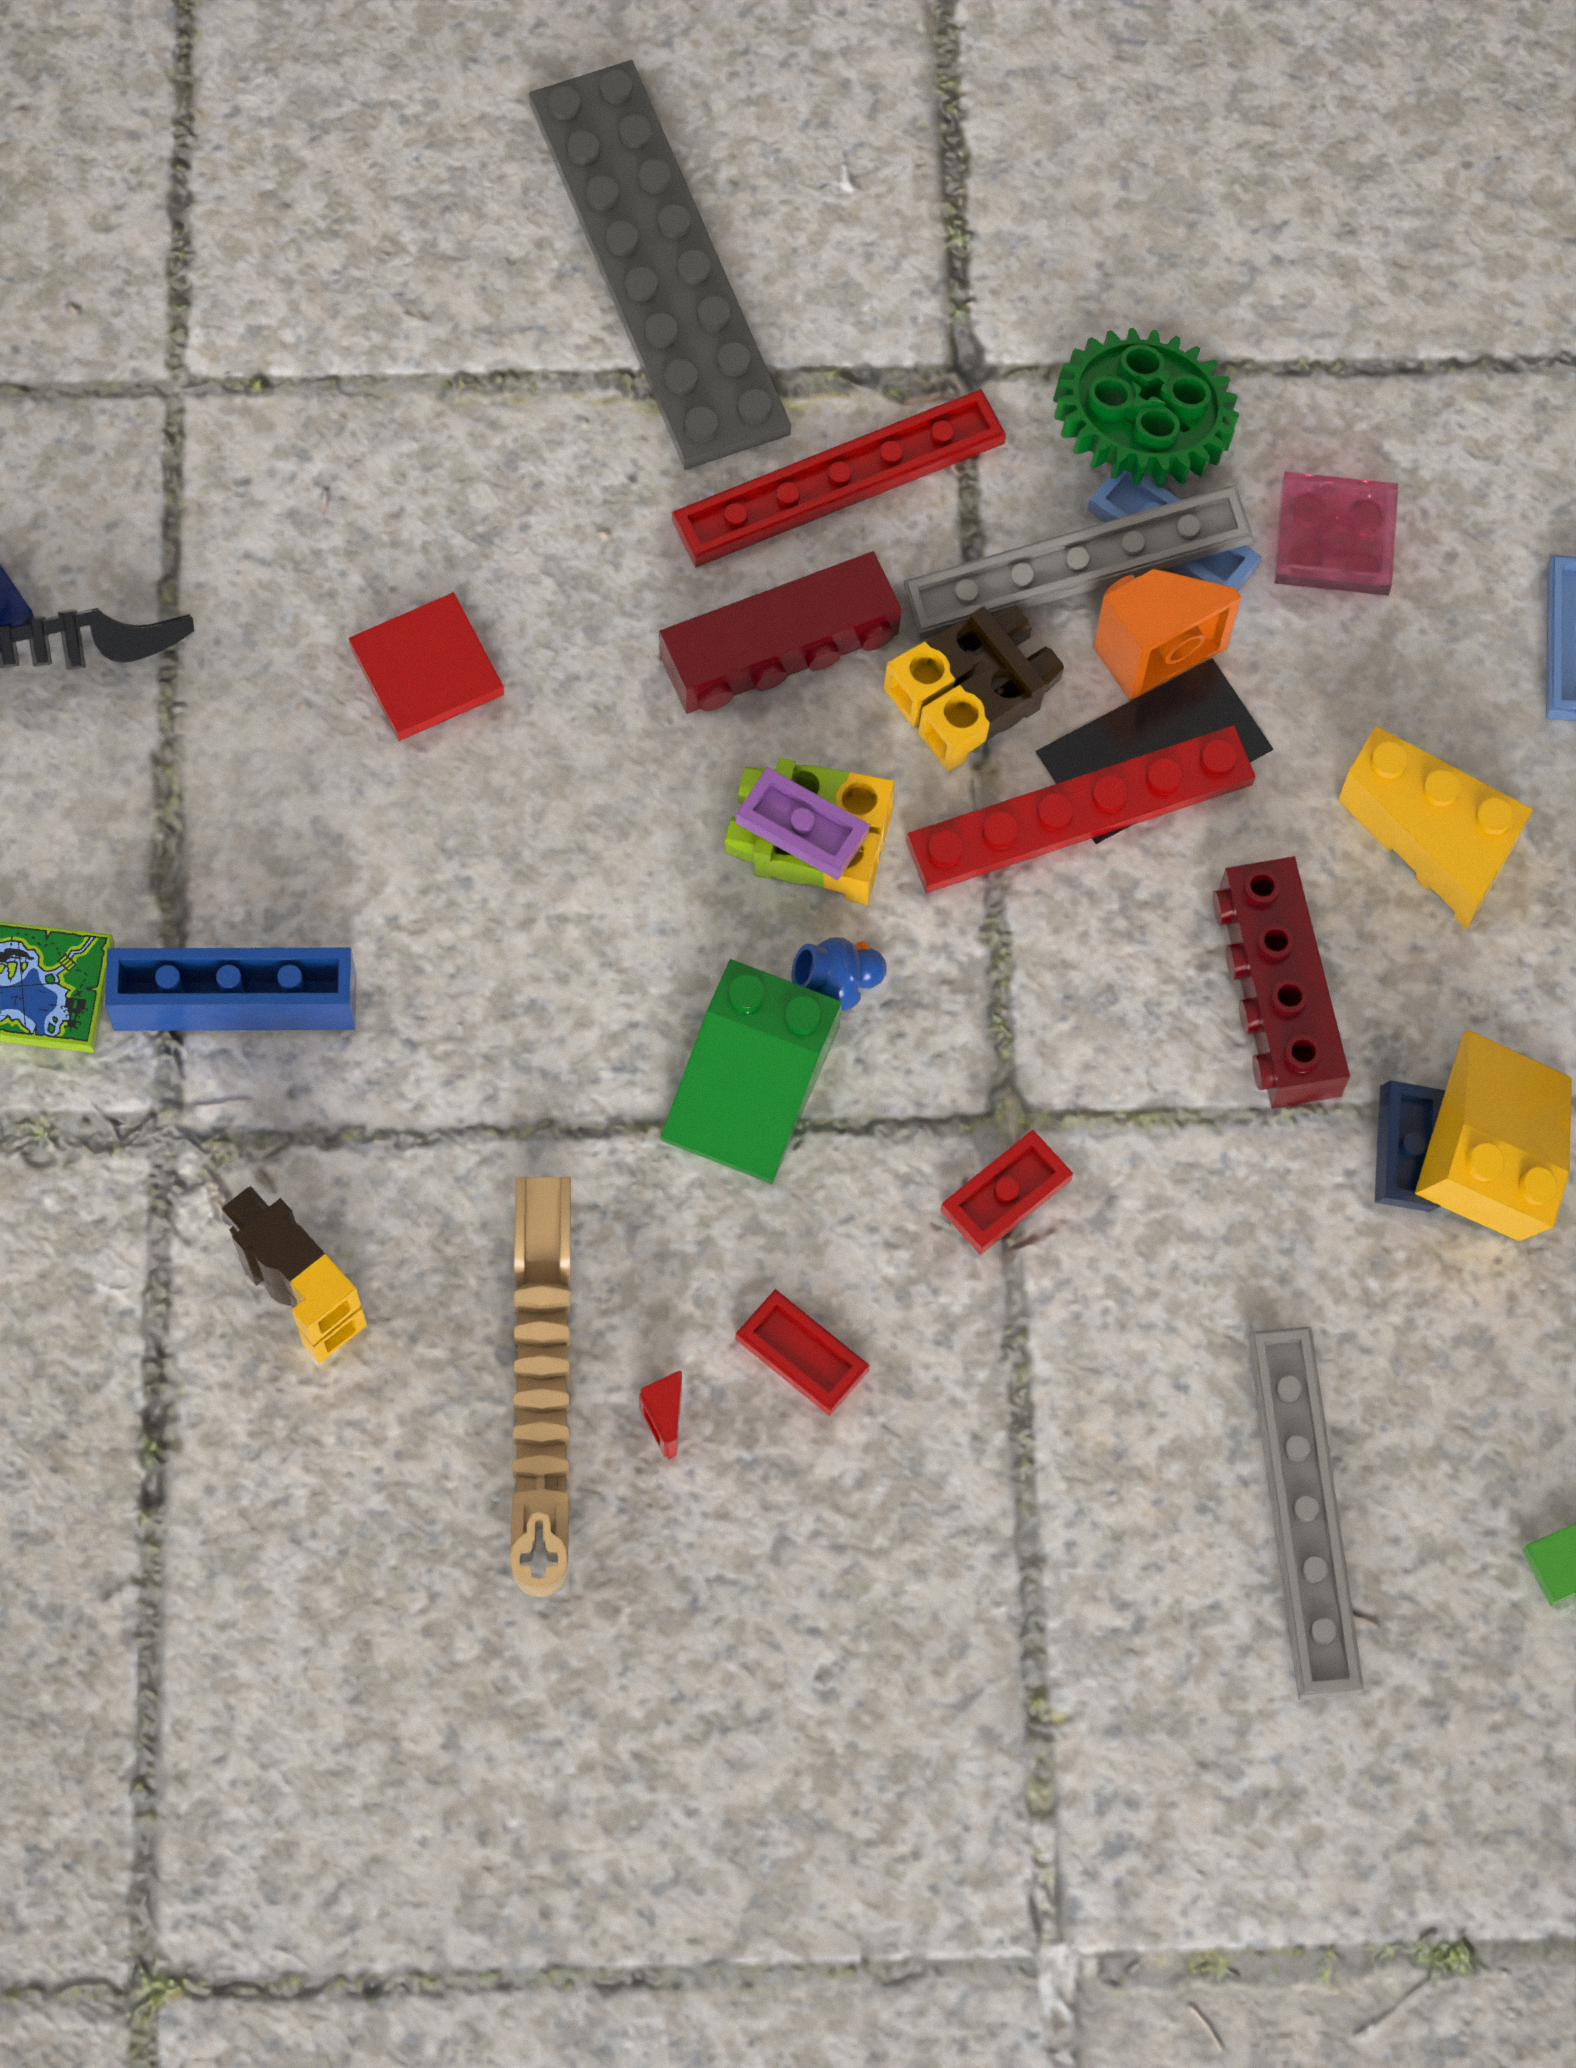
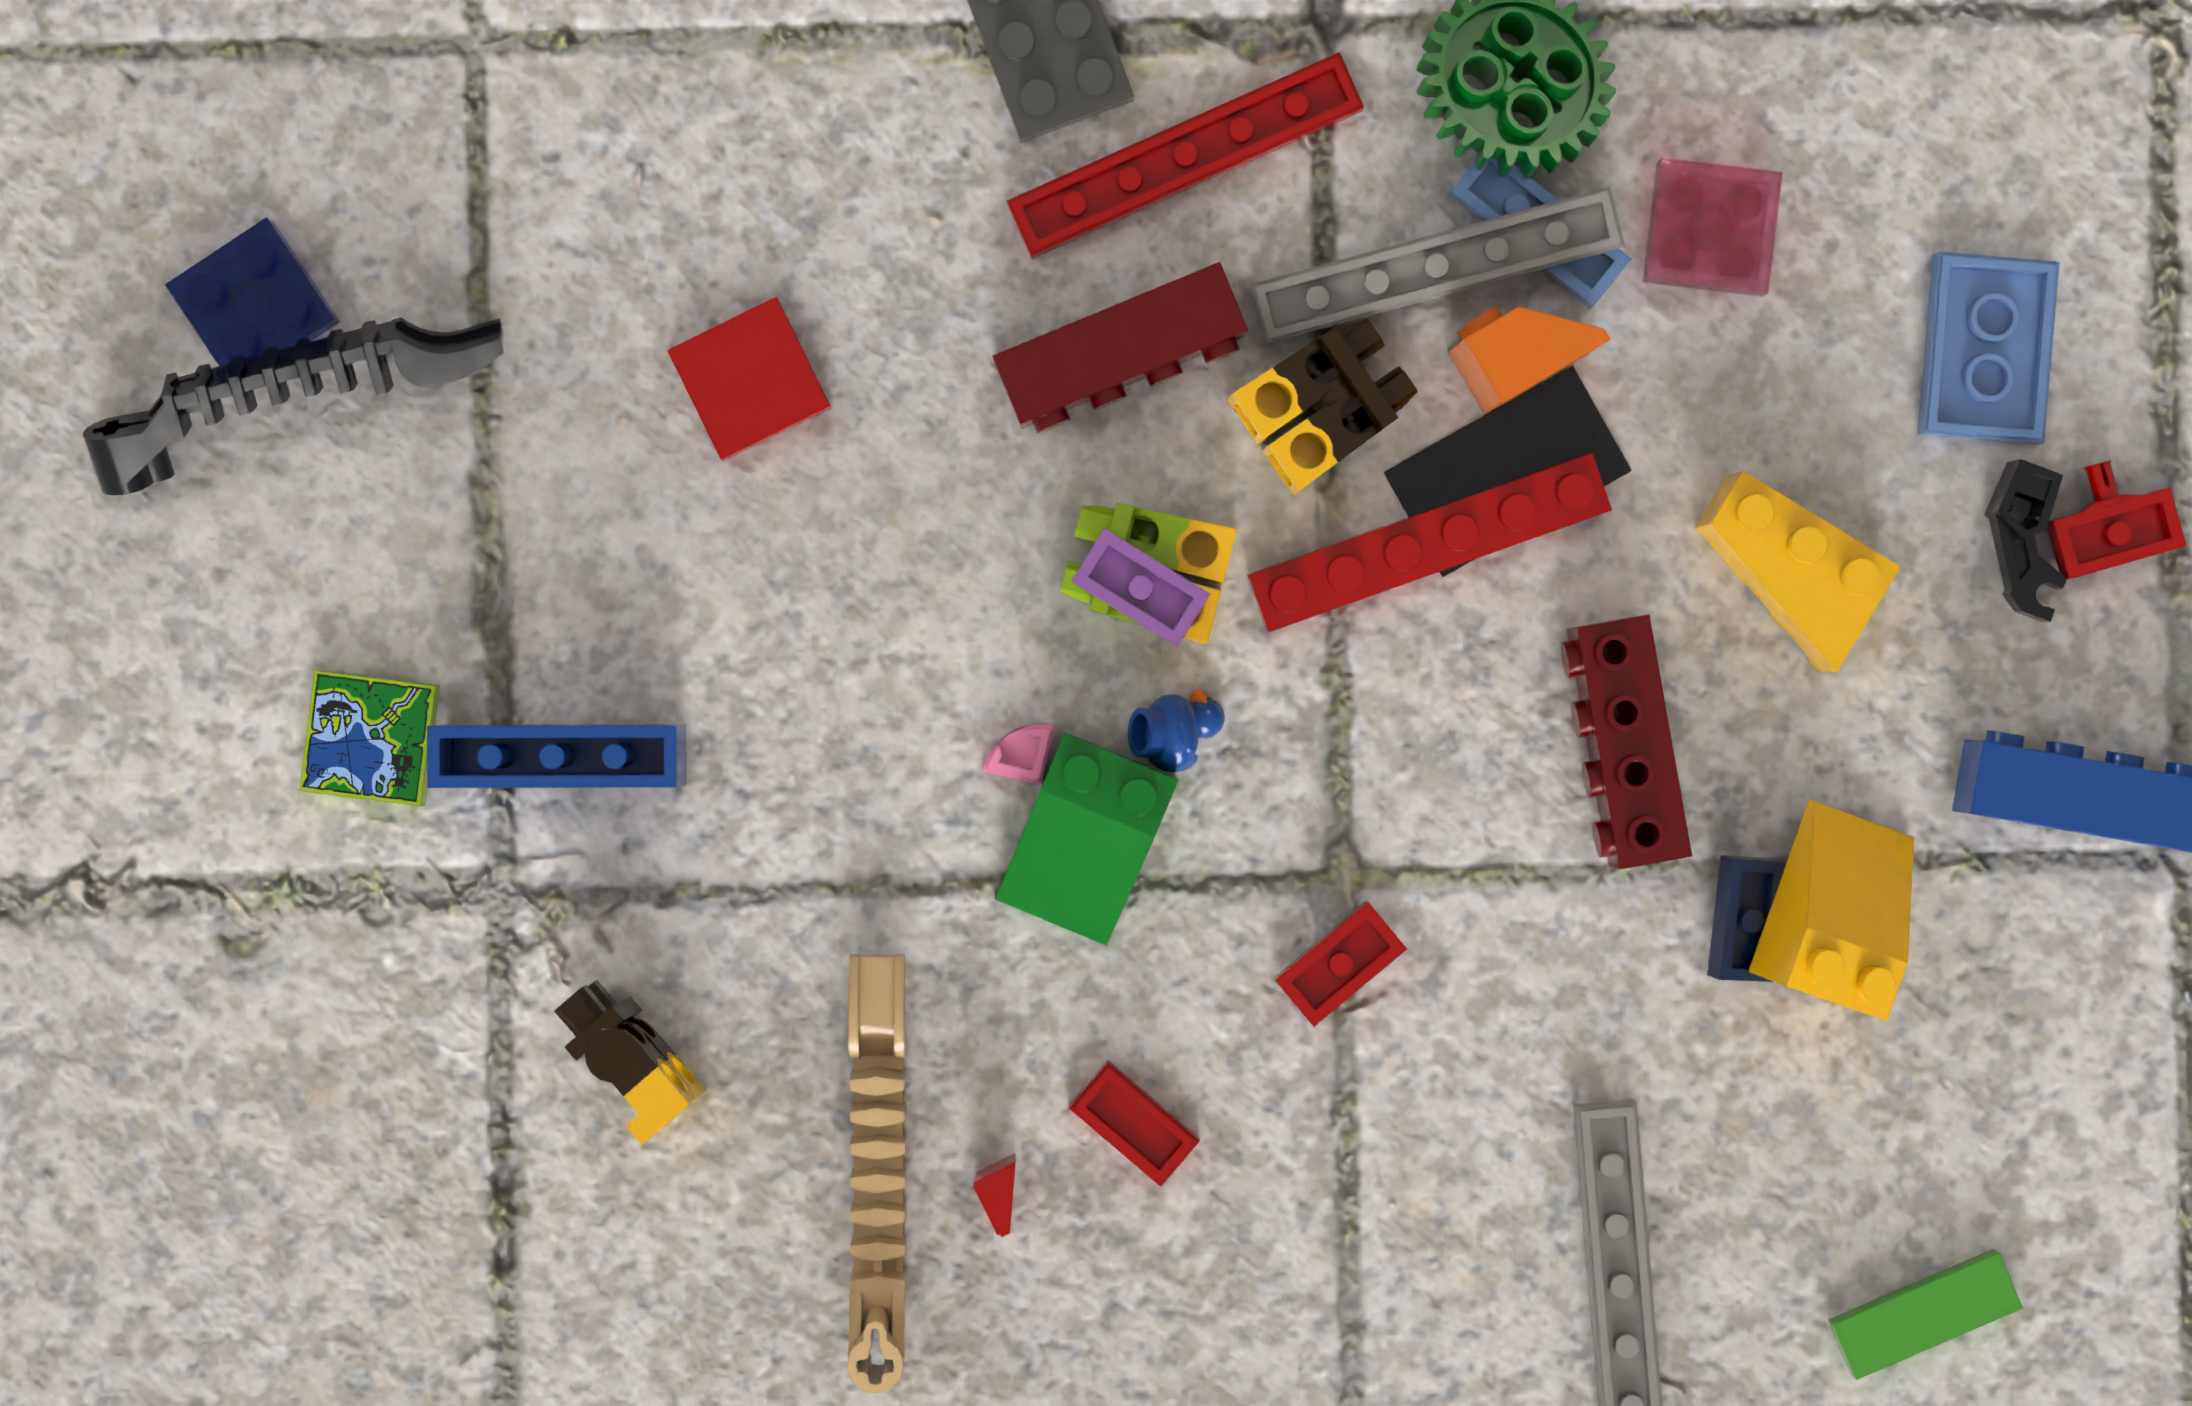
camera: 10 degrees right, 20 degrees up
(685, 1001) = (1022, 753): none -> bright pink tile

